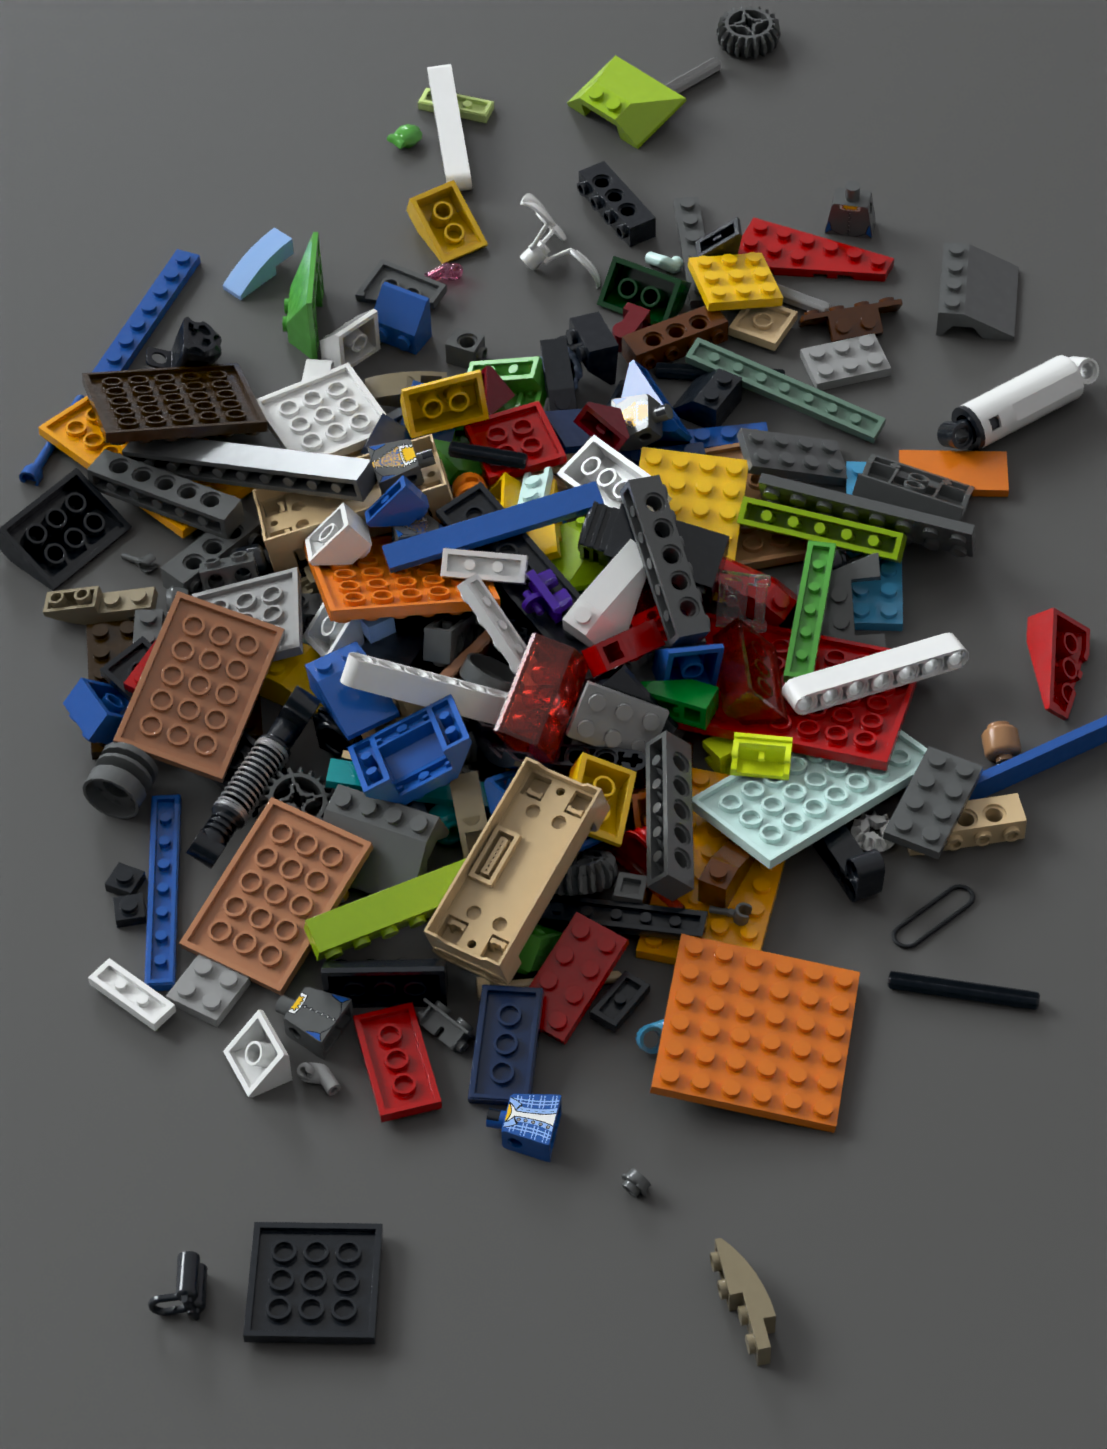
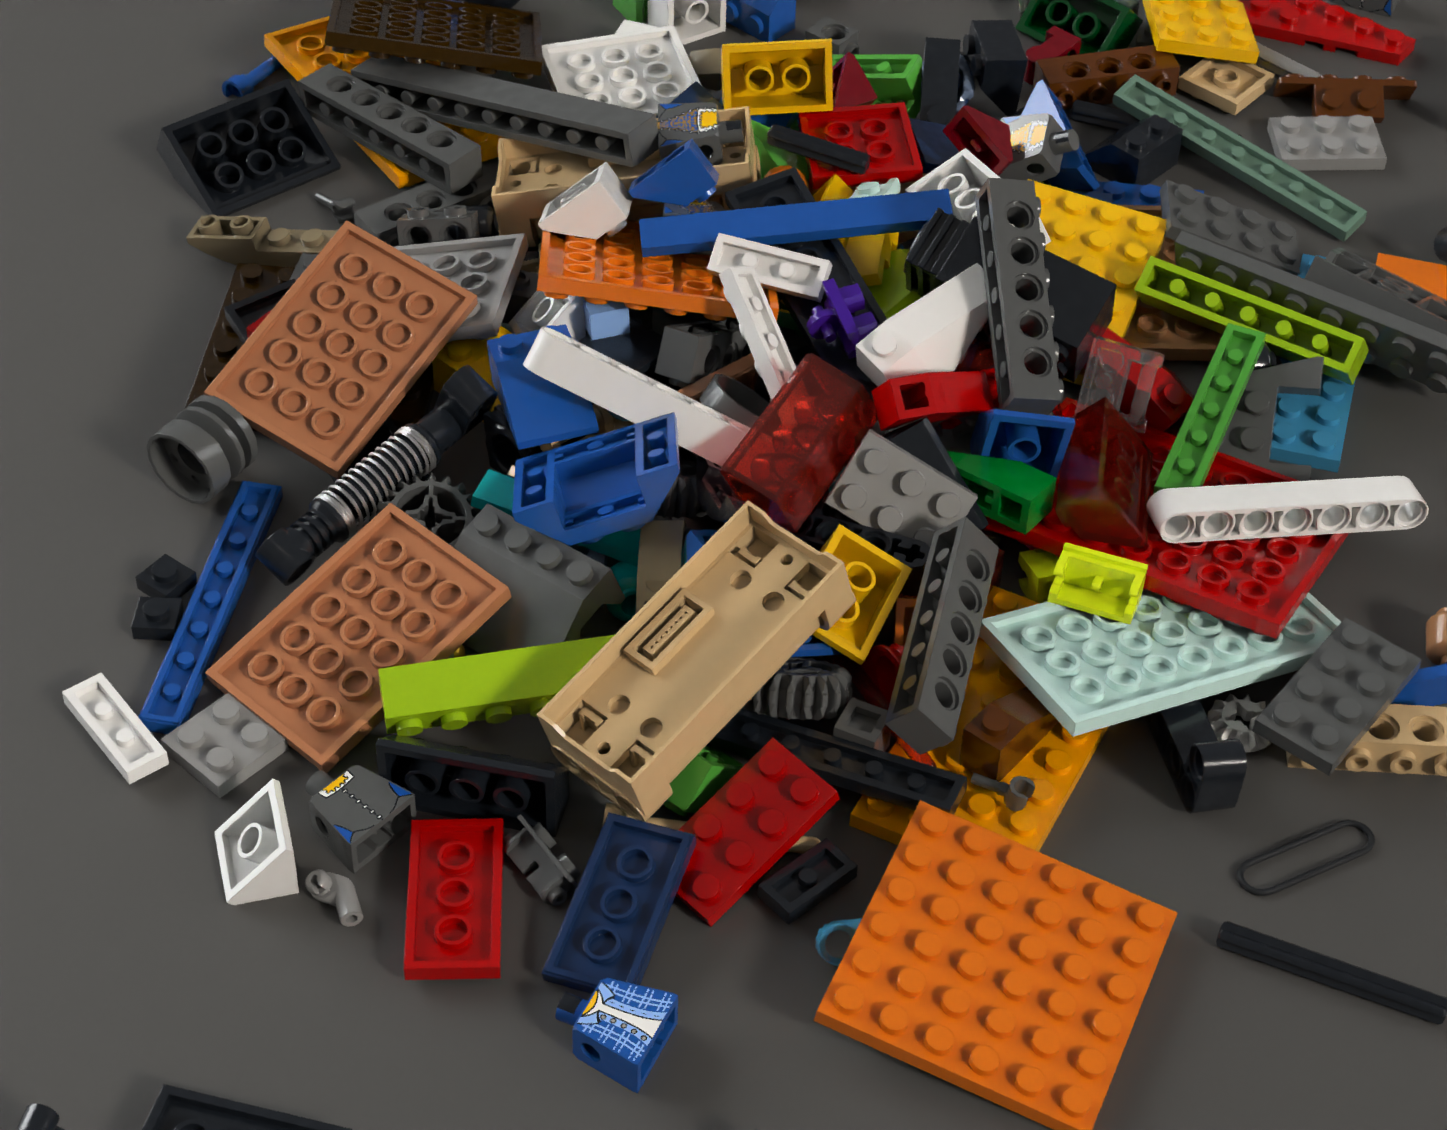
camera: 10 degrees right, 5 degrees down
(96, 709) = (198, 352): blue slope -> none

